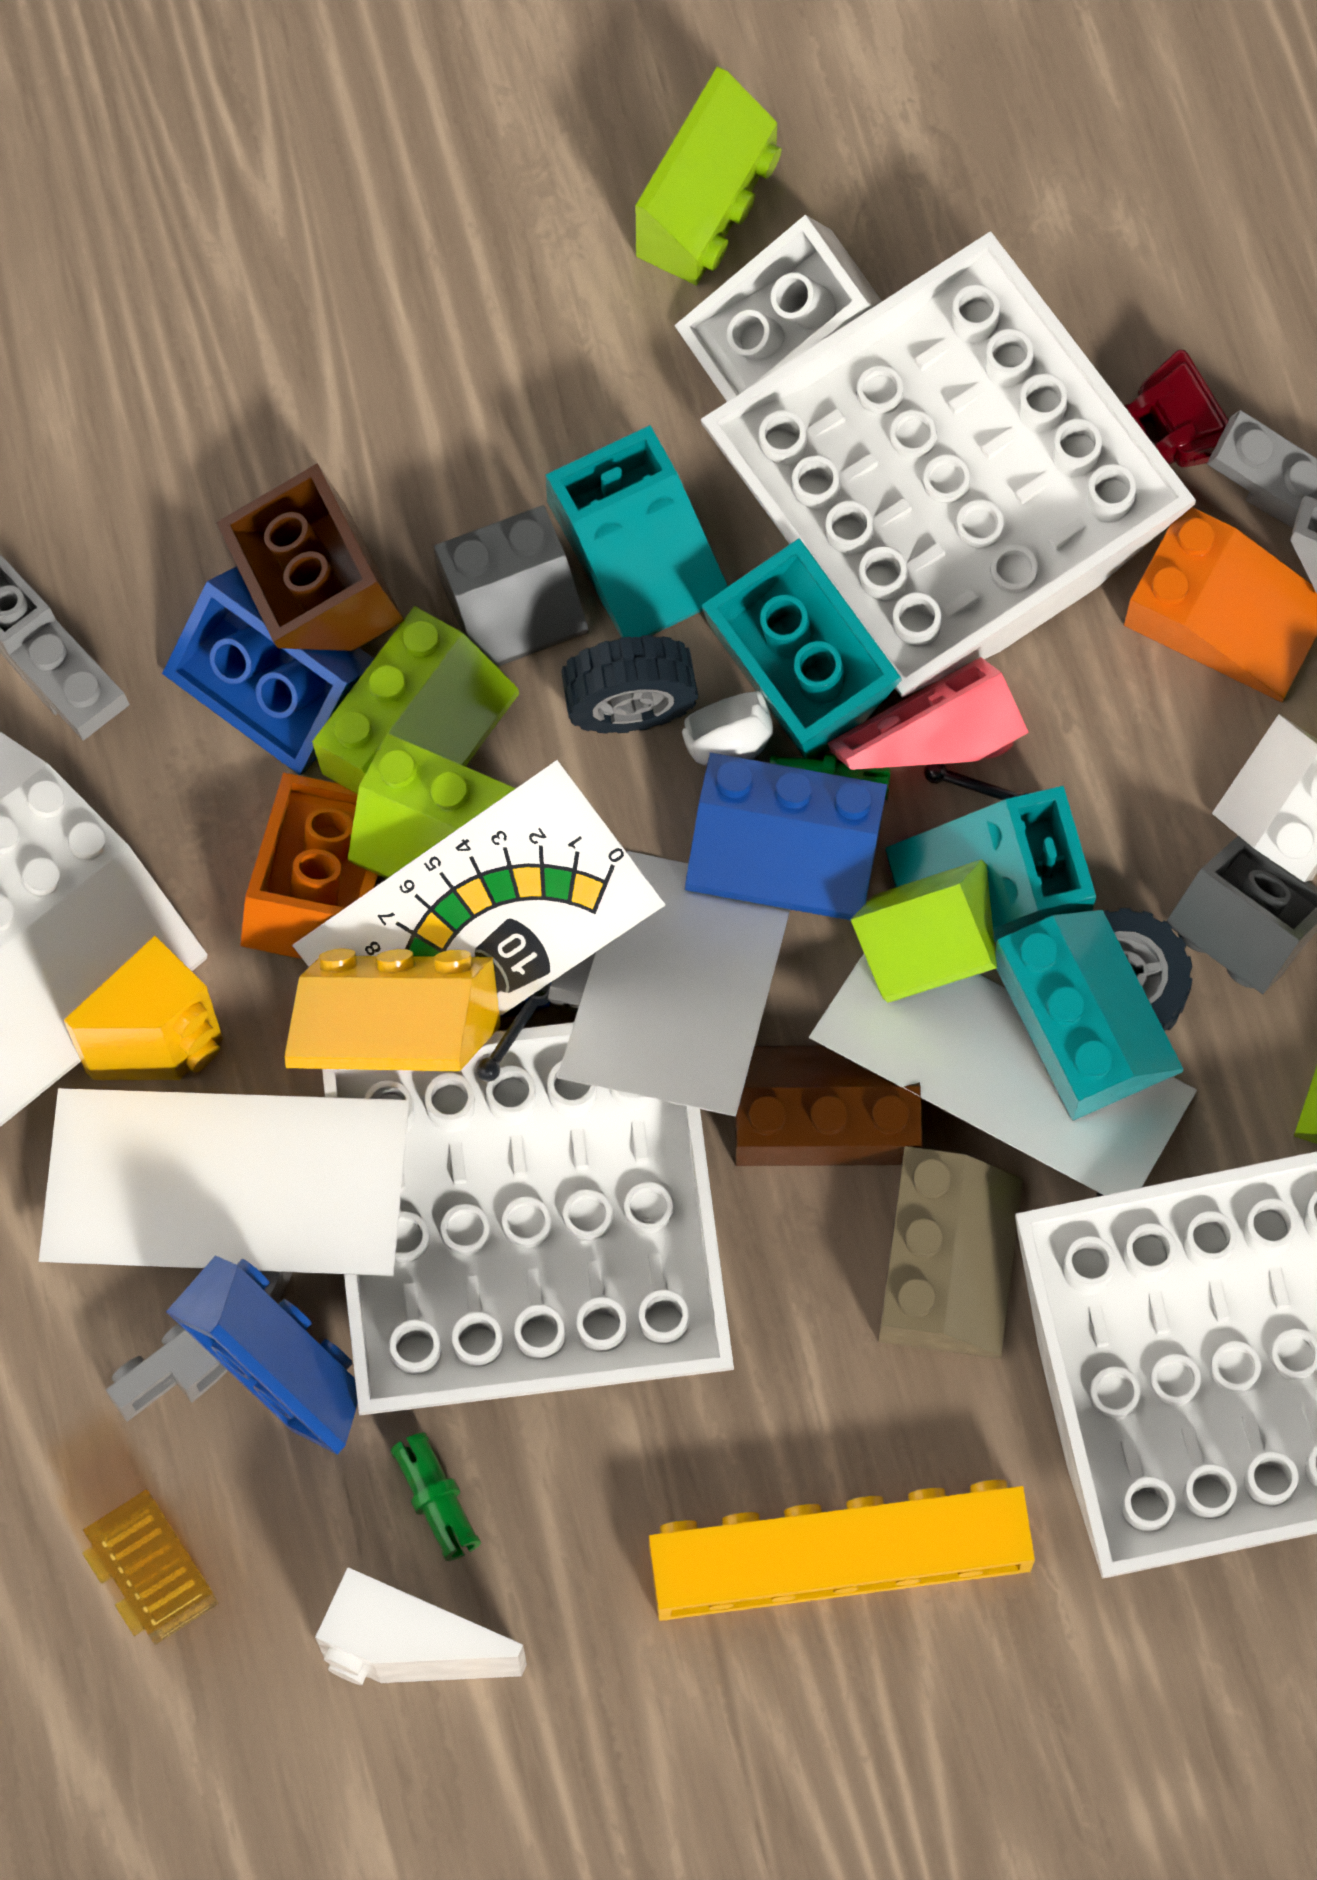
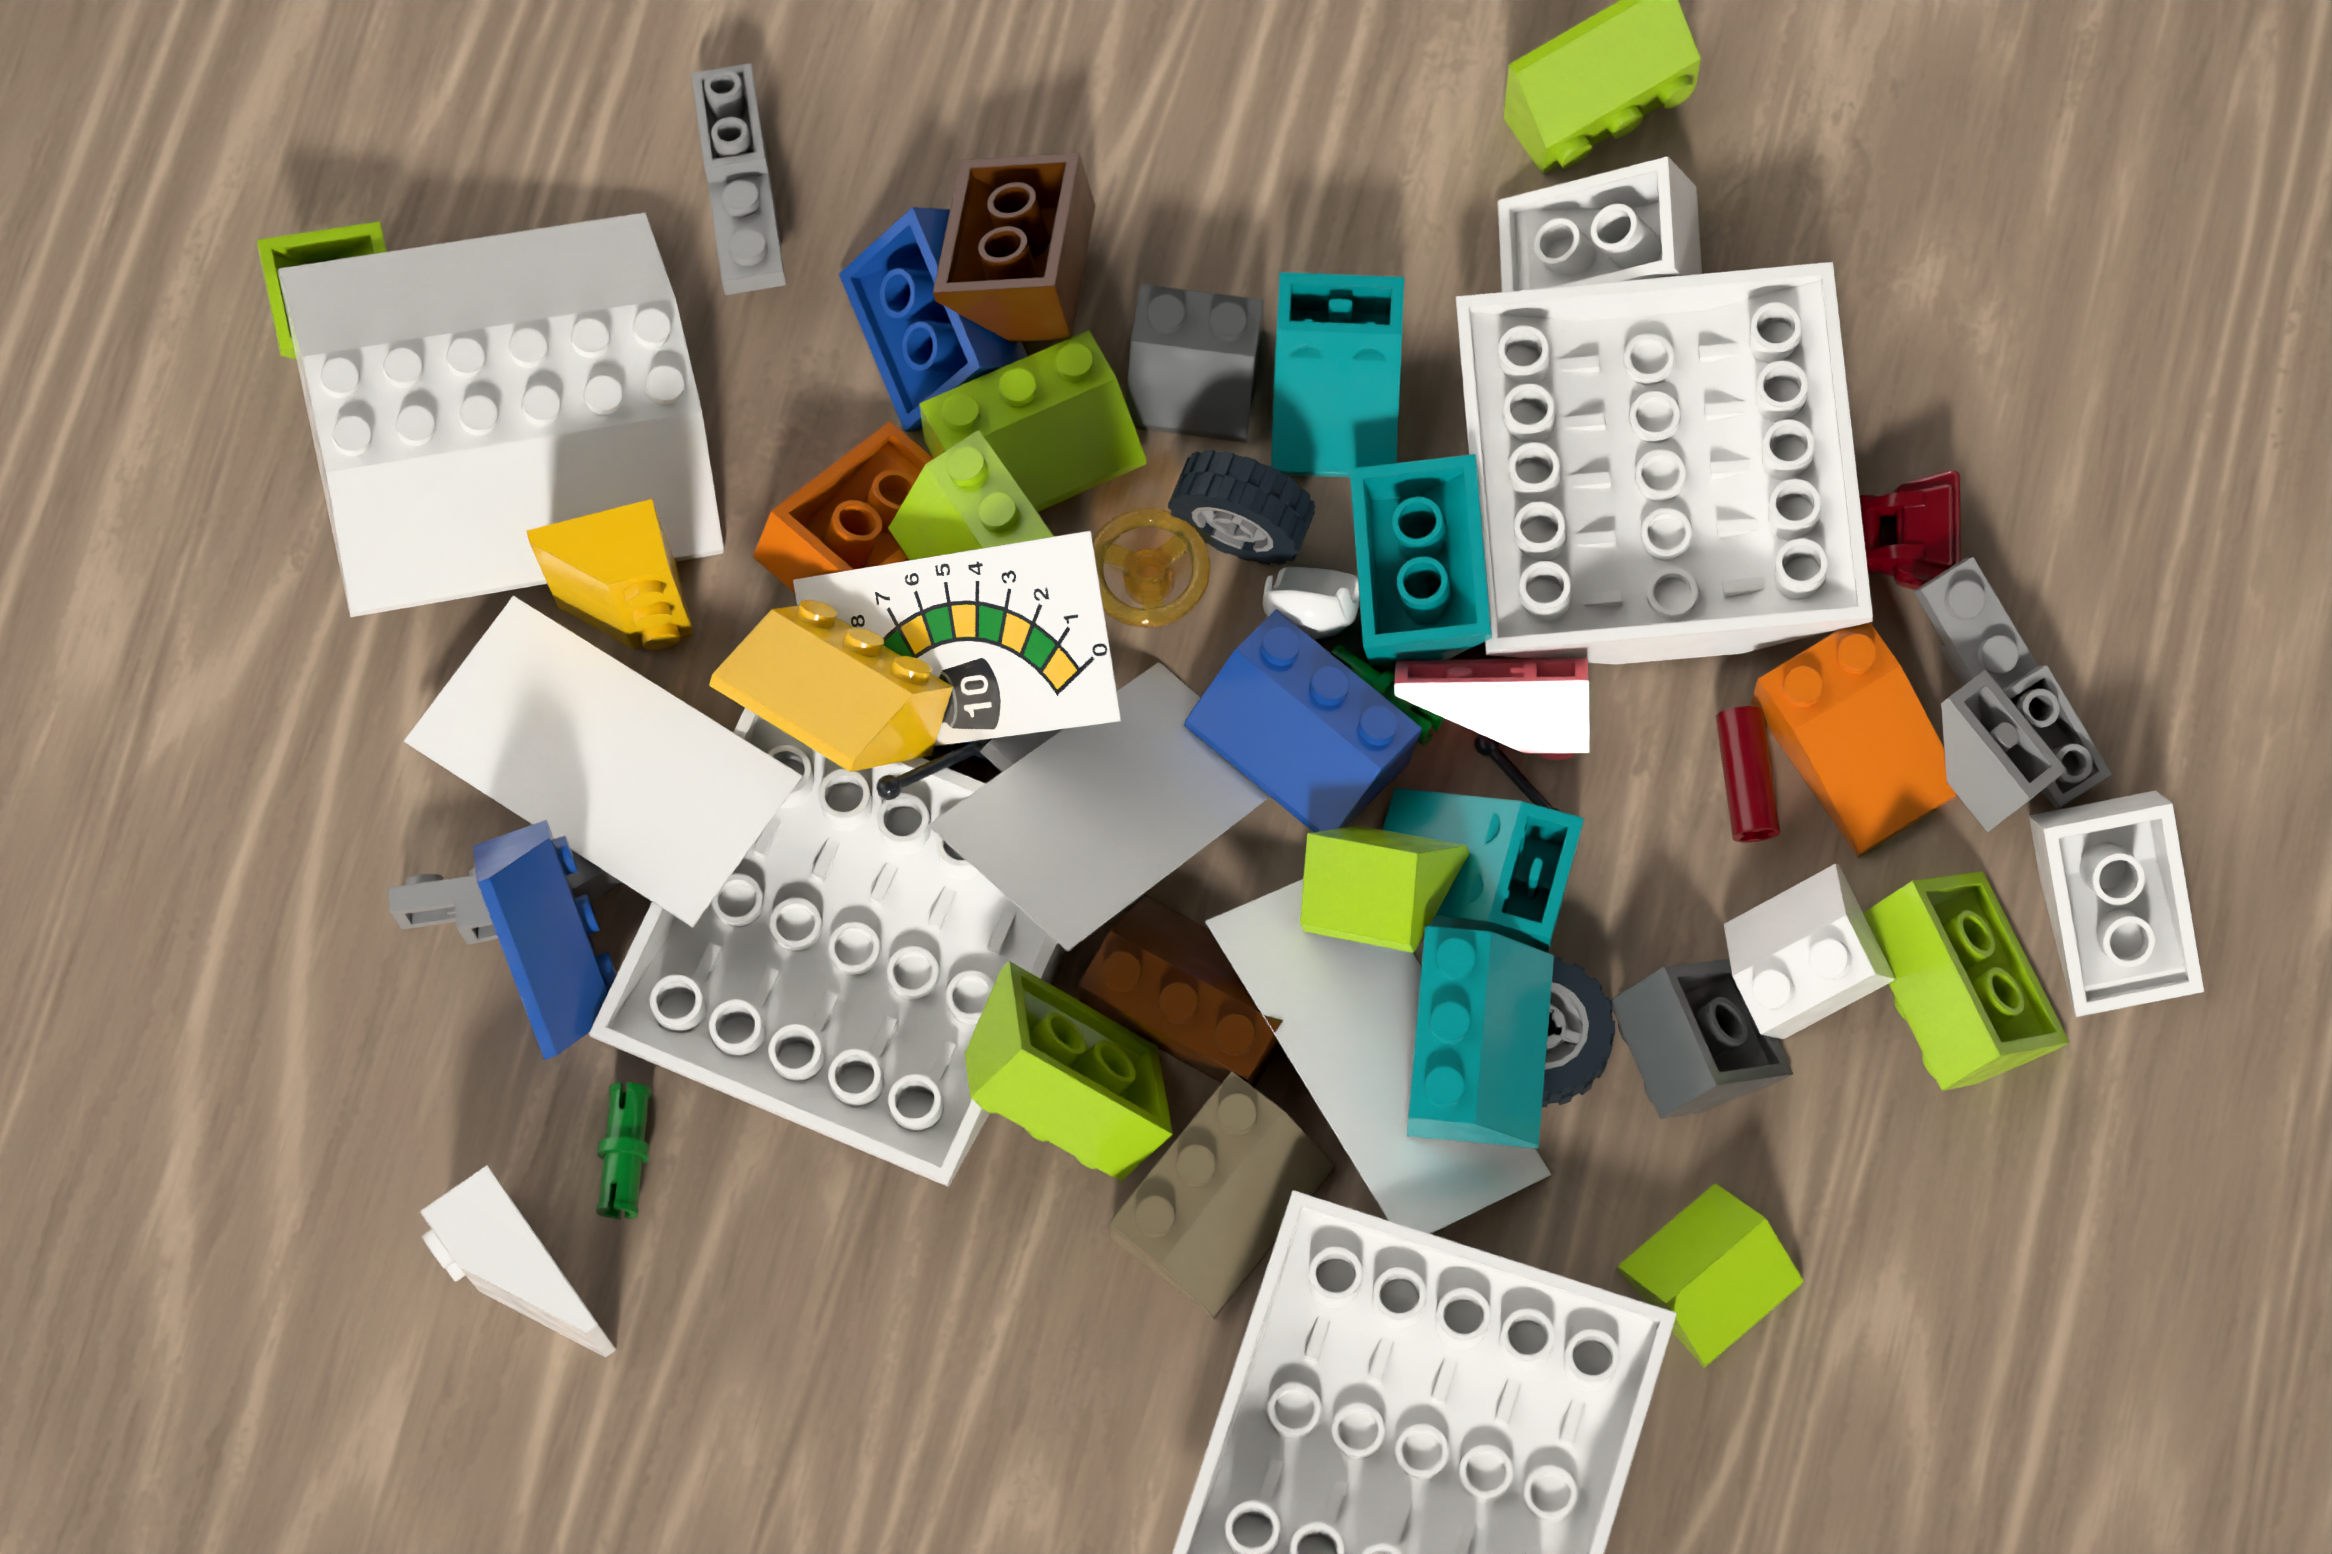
camera: 35 degrees right, 0 degrees up
(149, 1568) = (333, 1069): clear yellow brick -> none
(584, 764) = (1153, 590): none -> clear yellow piece
(775, 1224) = (1067, 1074): none -> lime slope
(840, 1551) = (952, 1410): yellow brick -> none
(1160, 682) = (1747, 774): none -> dark red piece

